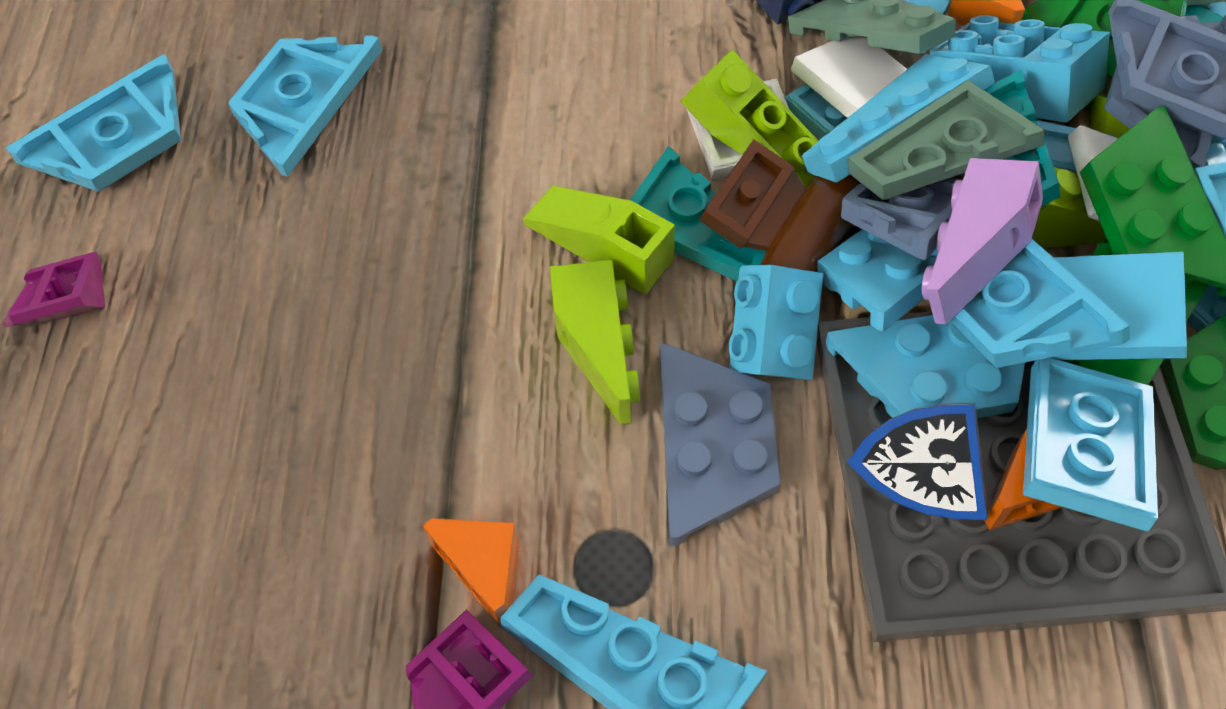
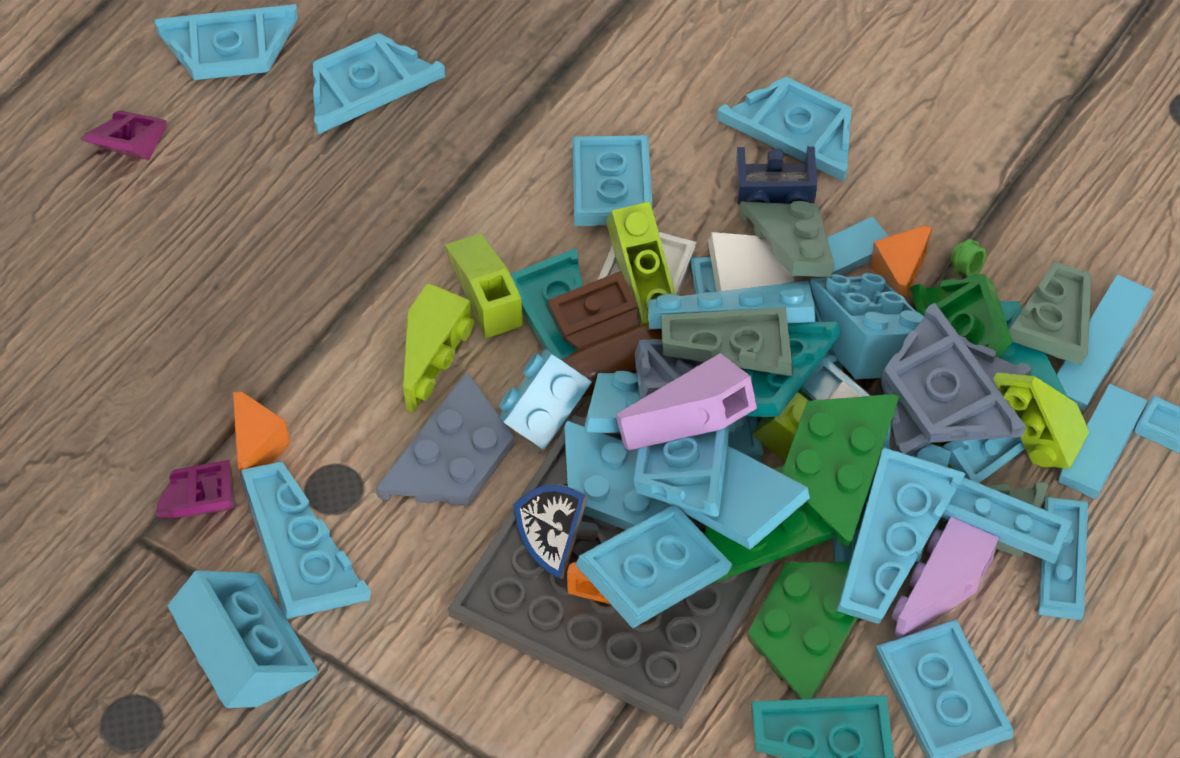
camera: 30 degrees right, 5 degrees down
(639, 62) = (609, 176): none -> medium azure tile

